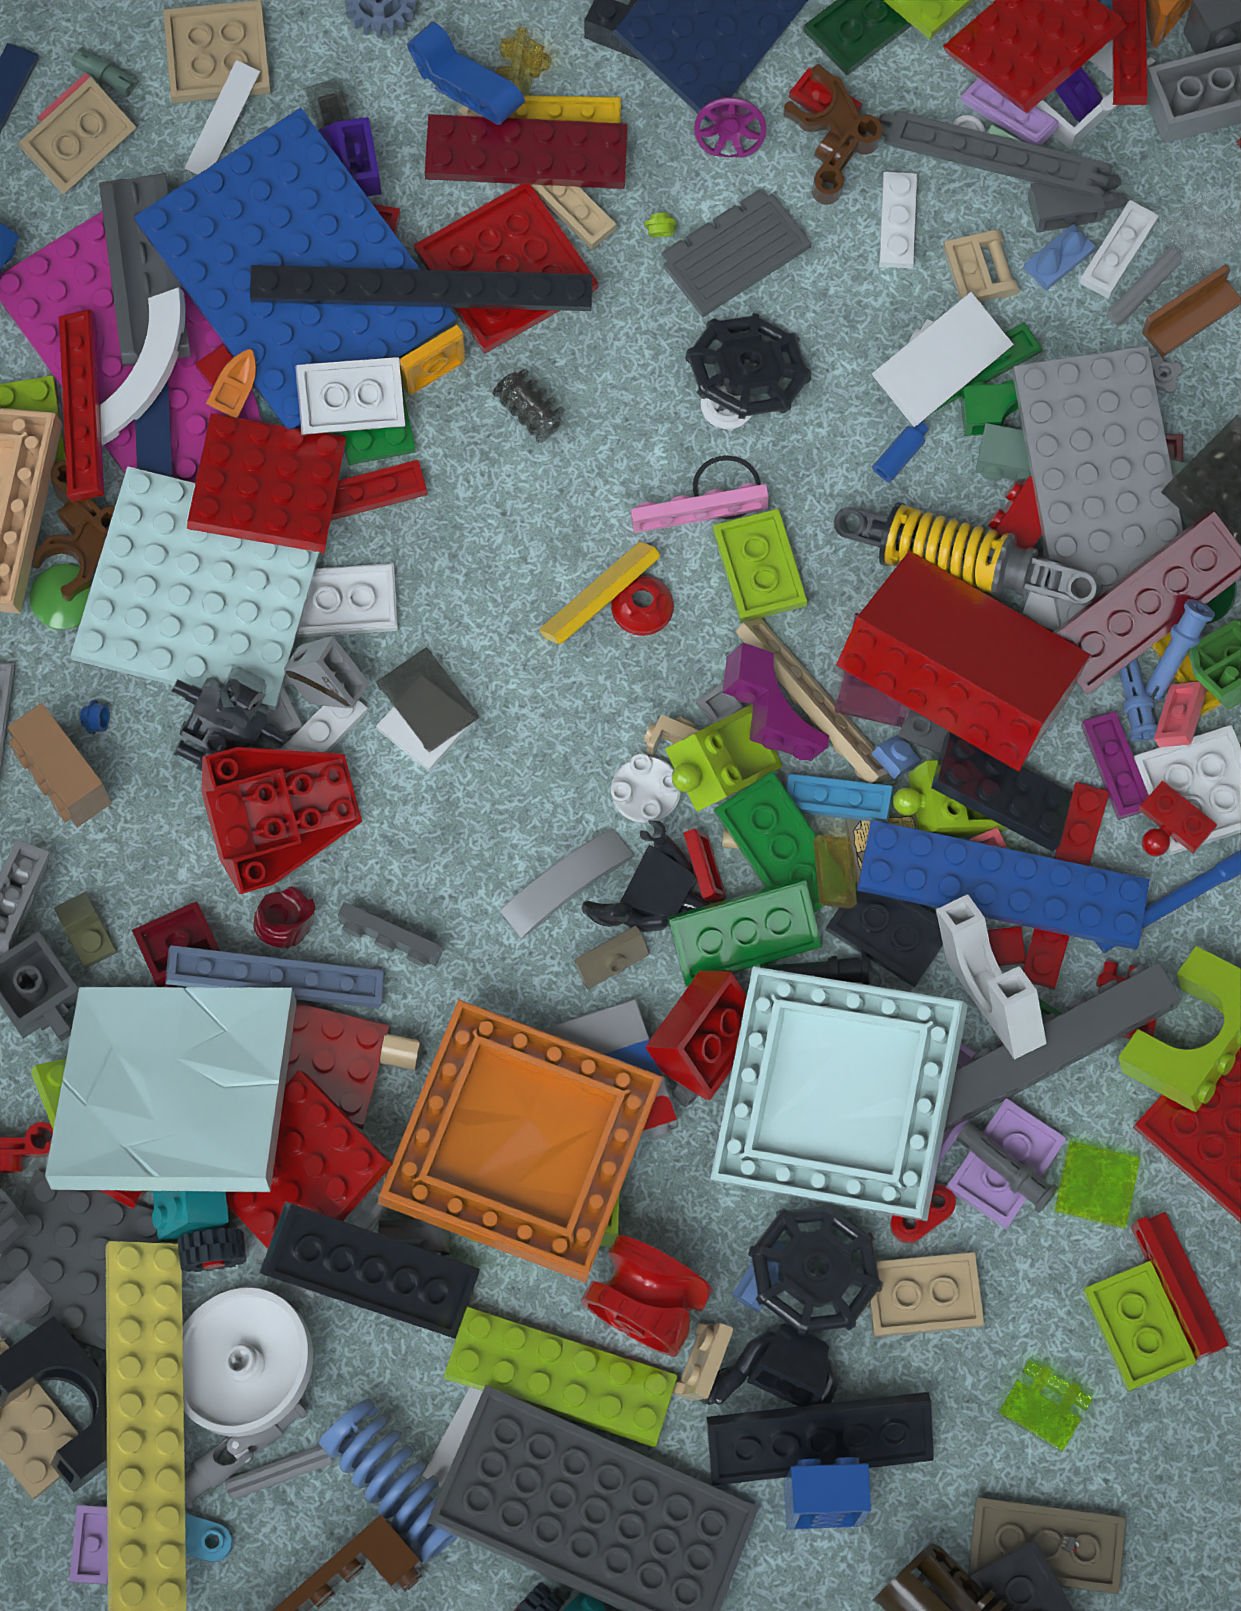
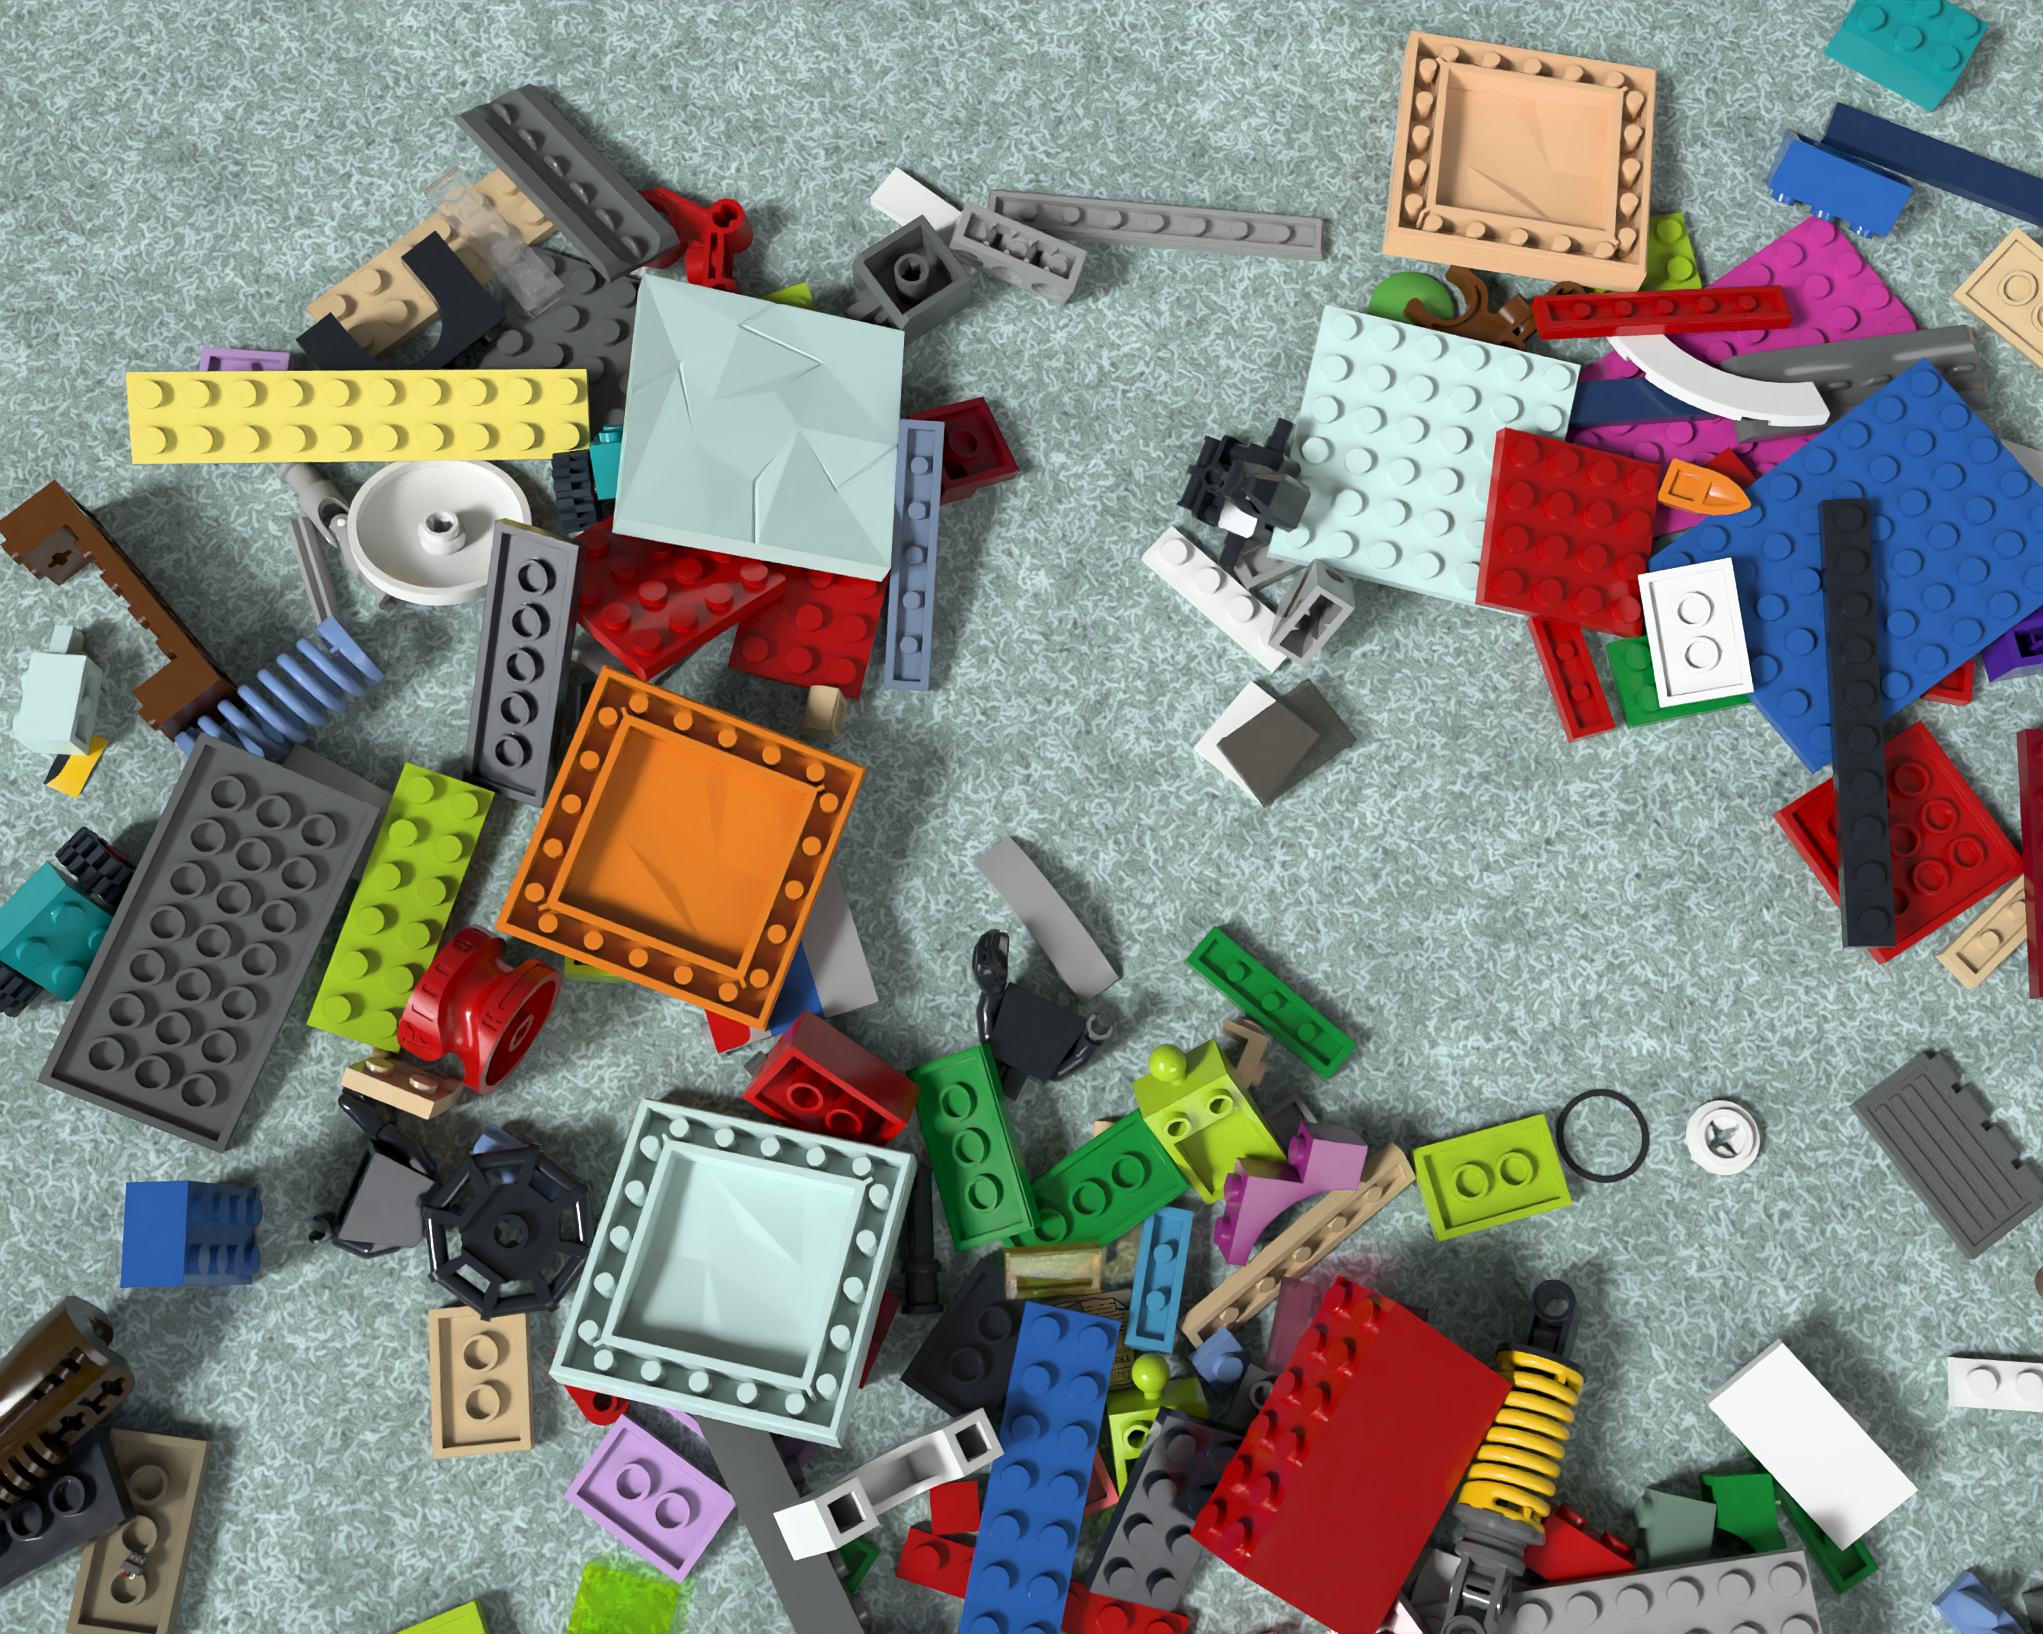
camera: 85 degrees right, 5 degrees up
(57, 766) = (1185, 299): medium nougat brick -> none
(85, 930) = (988, 345): olive slope -> none
(90, 717) = (1254, 344): blue plate -> none
(196, 1534) = (248, 485): medium azure plate -> none
(275, 809) = (1133, 557): red wedge -> none
(284, 918) = (995, 570): dark red hair -> none
(350, 601) = (1418, 649): white tile -> none
(389, 936) = (972, 697): dark grey plate -> none
(432, 360) = (1755, 741): light orange tile -> none
(529, 404) = (1702, 869): clear smoke piece -> none
(599, 593) = (1442, 963): yellow tile -> none
(611, 957) = (941, 974): dark tan plate -> none
(631, 717) = (1270, 1003): none -> green plate
(644, 789) = (1170, 1013): white dish -> none
(648, 619) = (1412, 1036): red piece -> none
(661, 225) = (1980, 1048): lime plate -> none
(705, 865) = (1065, 1096): red tile -> none
(710, 506) = (1573, 1115): bright pink plate -> none
(747, 381) = (1757, 1159): black plate -> none
(773, 1440) = (295, 1235): black plate -> none
(900, 452) = (1668, 1380): blue cylinder -> none
(970, 268) = (1956, 1490): tan plate -> none
(1020, 1177) = (621, 1516): dark grey pin -> none
(1039, 1414) = (312, 1530): clear neon green plate -> none

